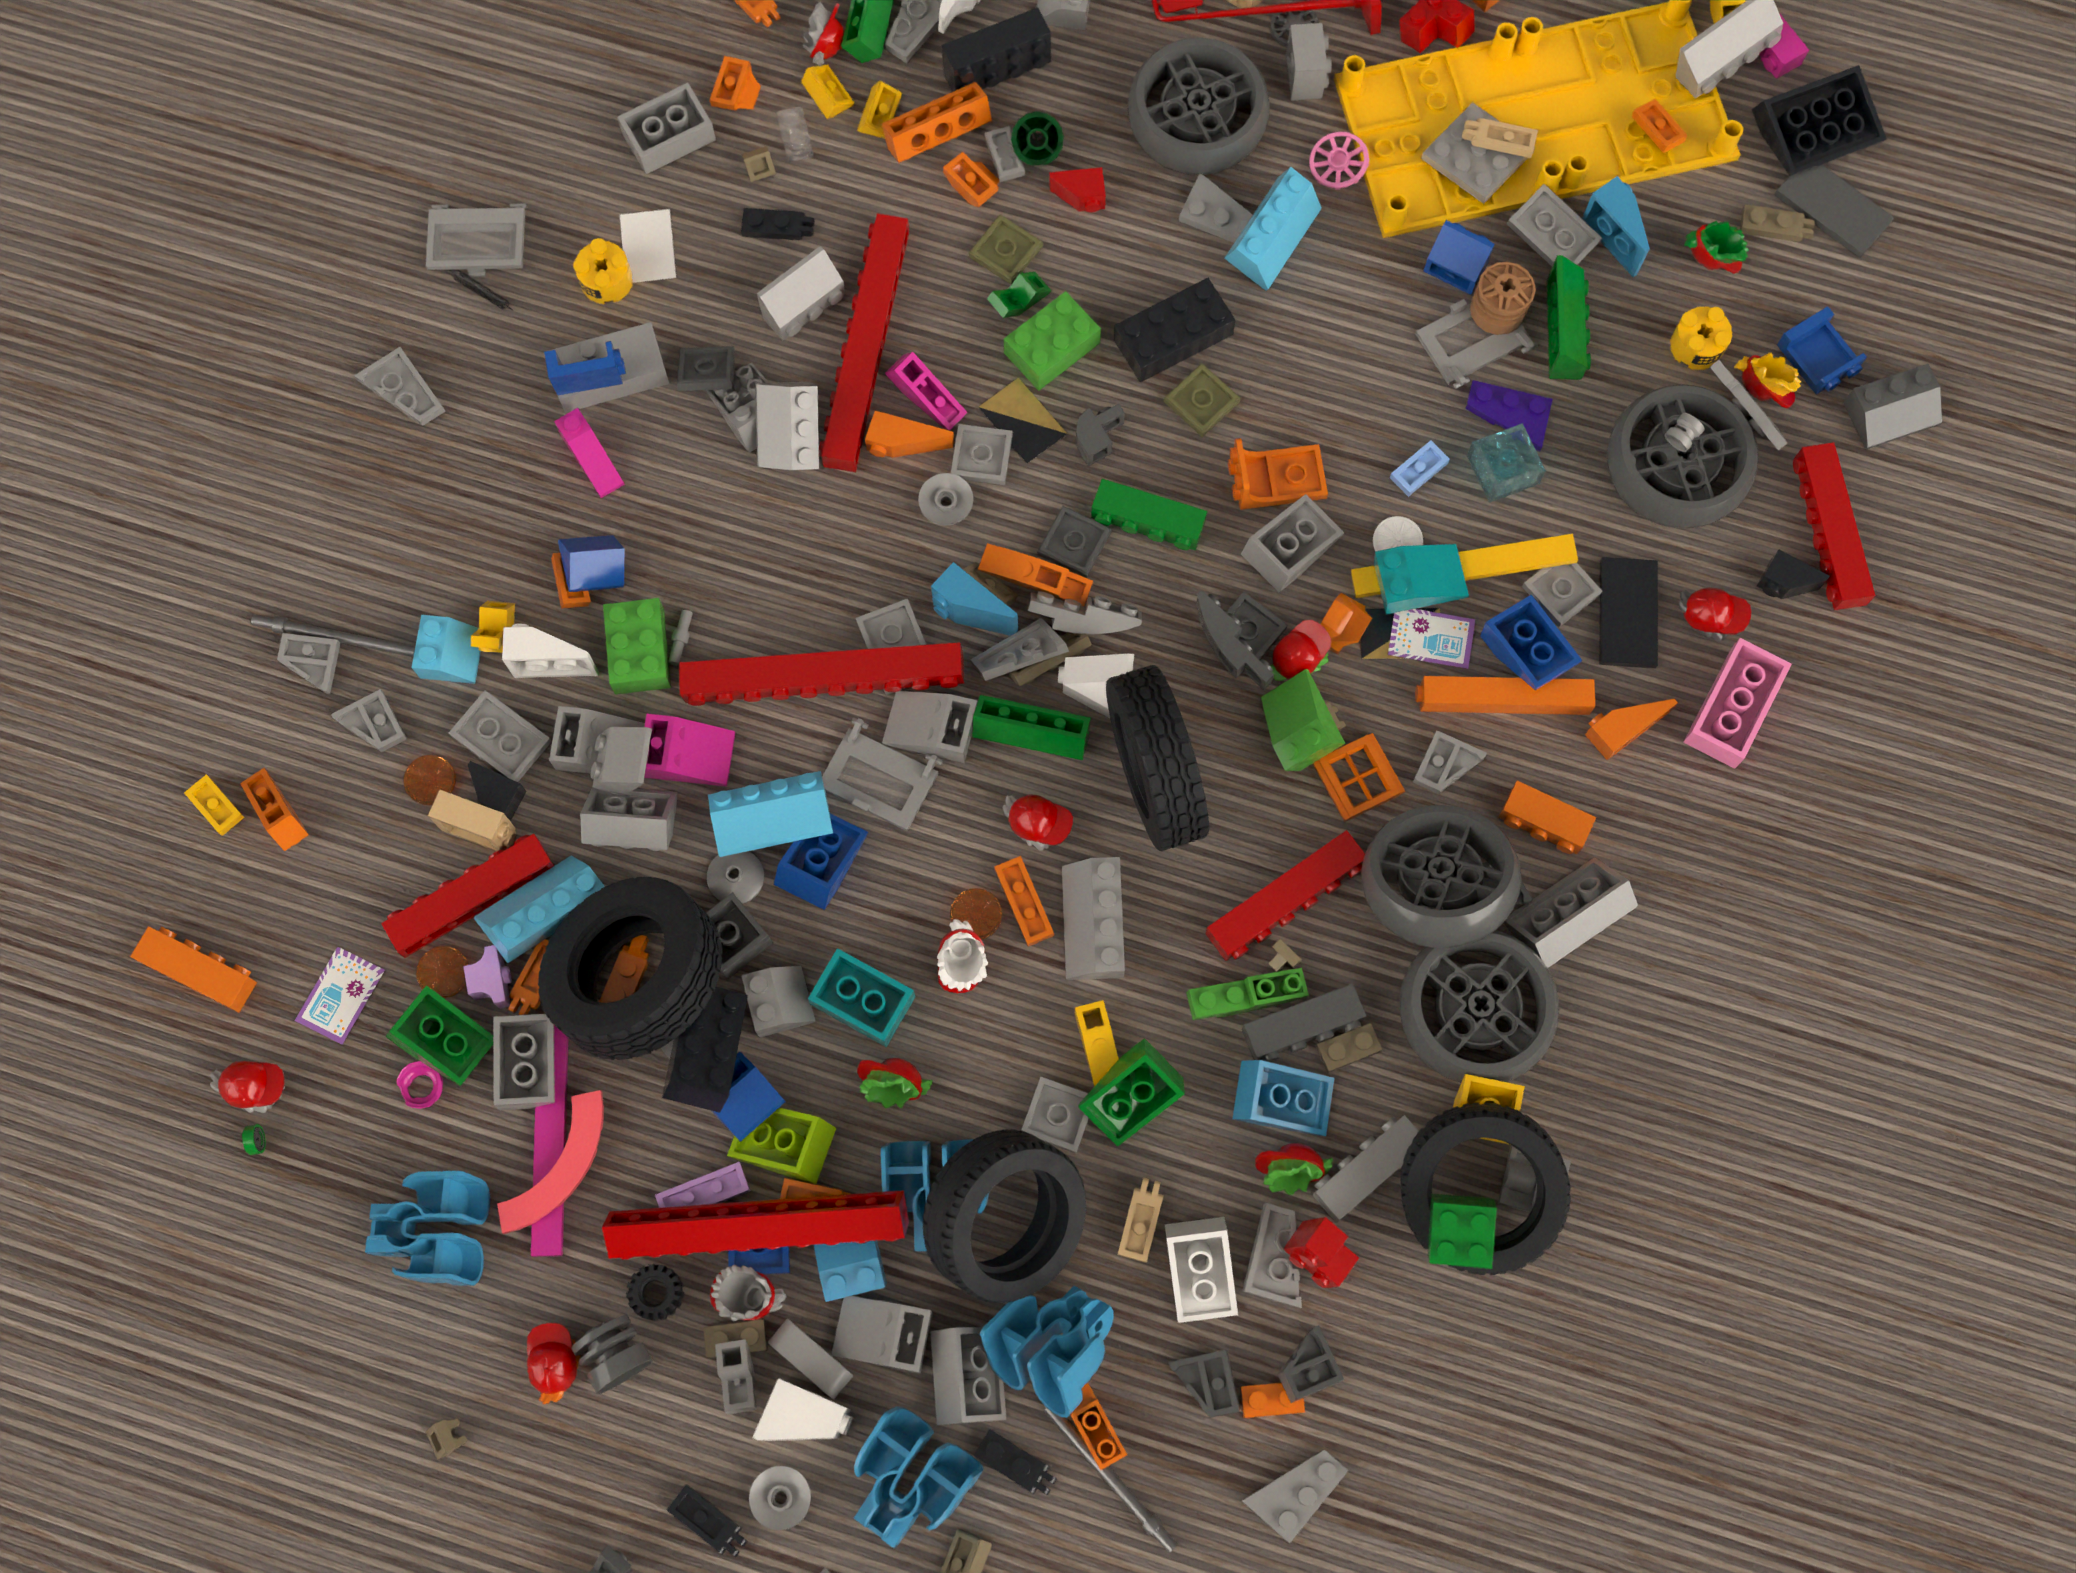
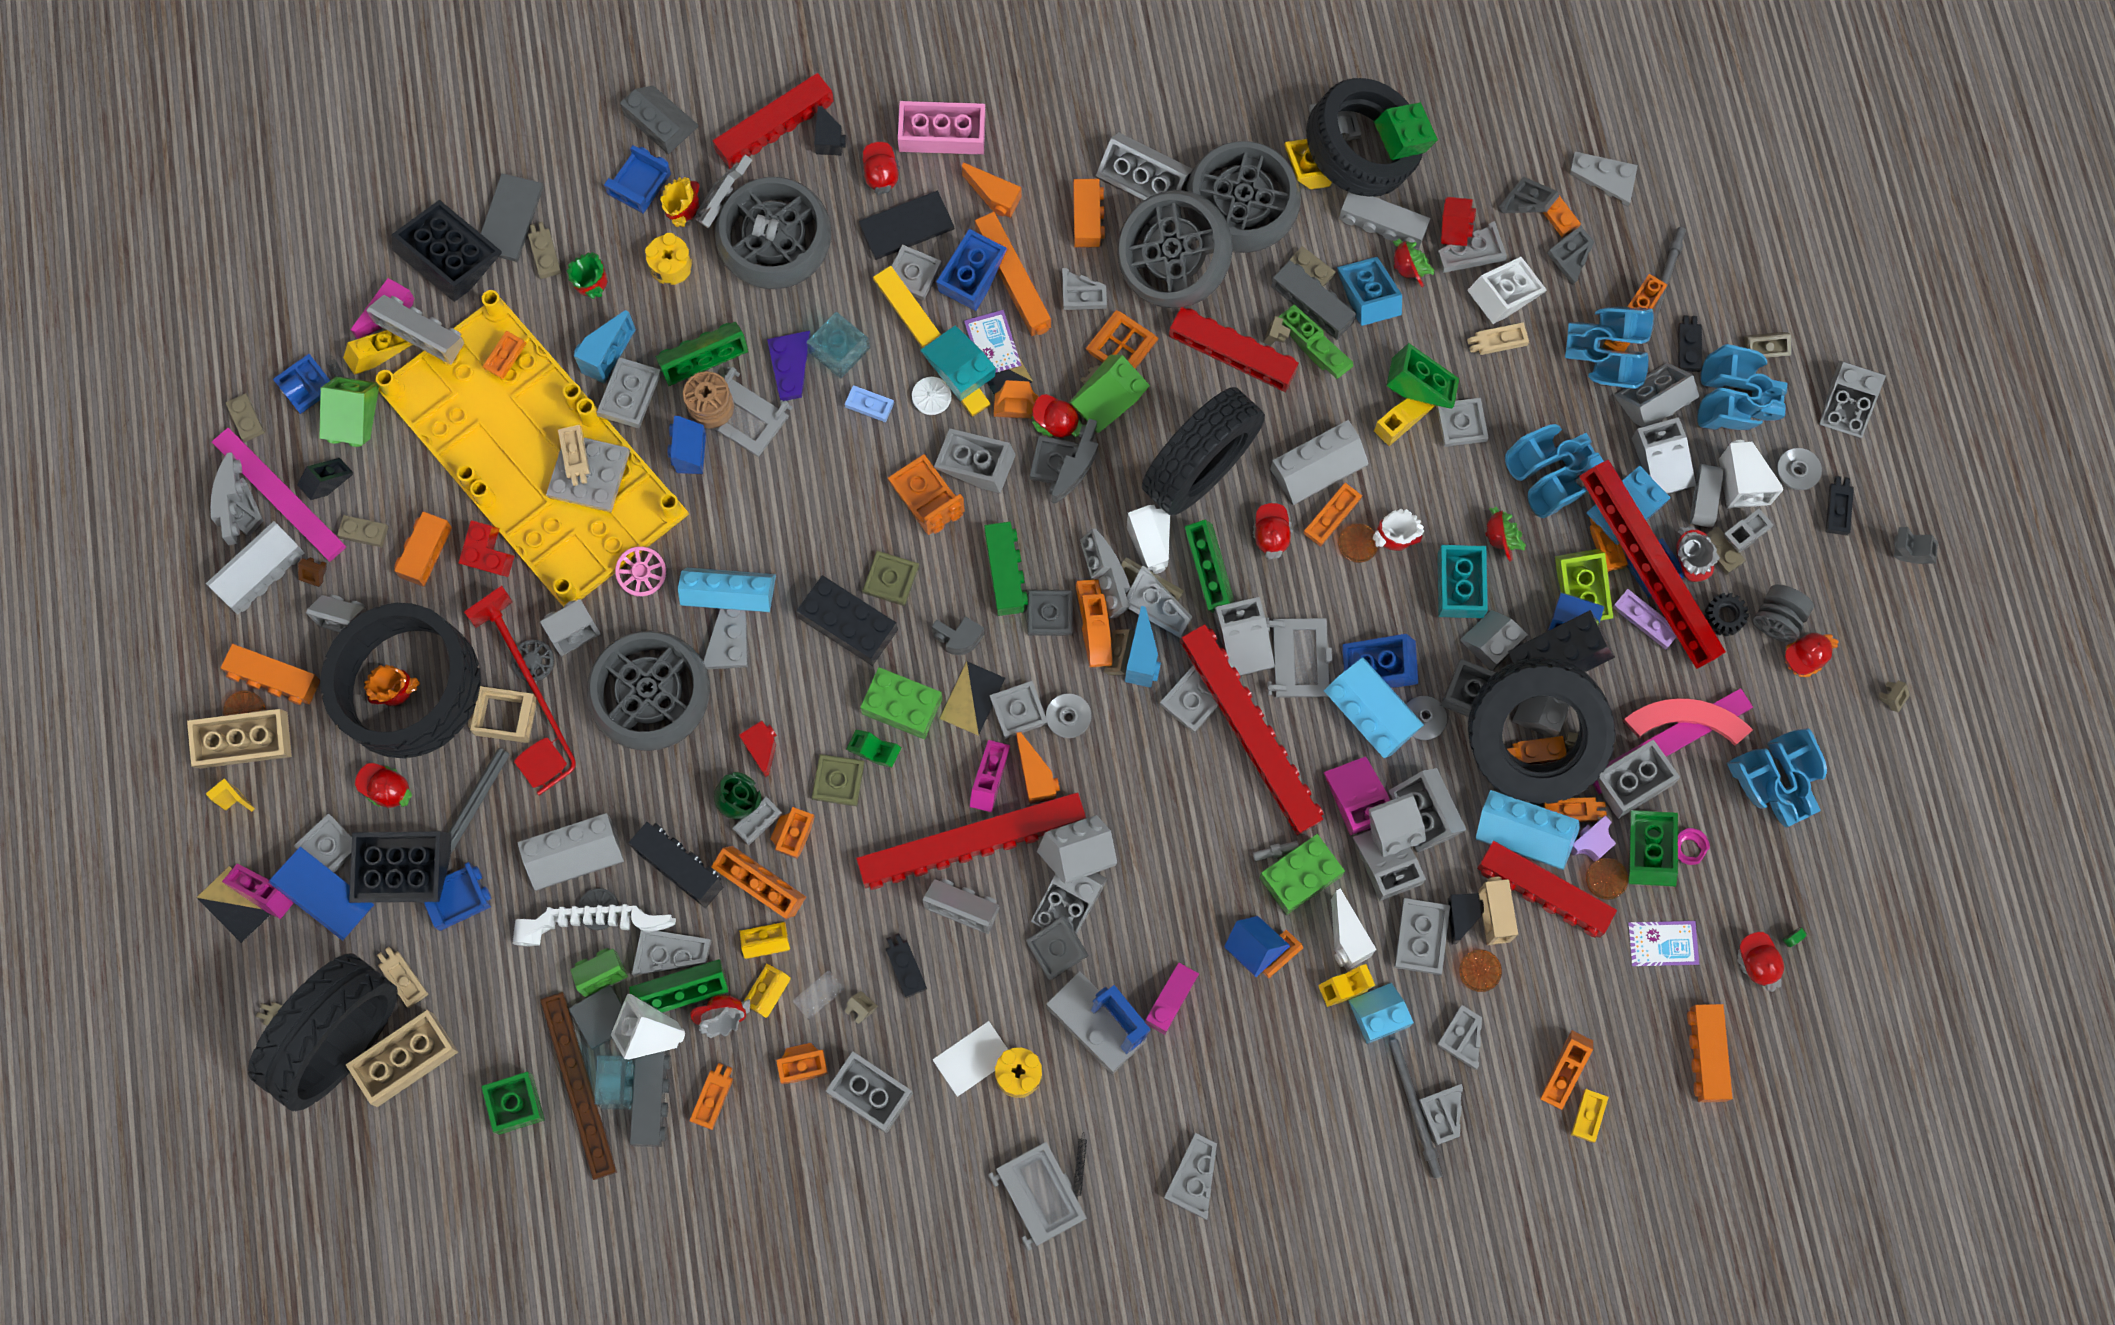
camera: 120 degrees left, 0 degrees up
(962, 1188) = (1558, 404): black tyre -> none

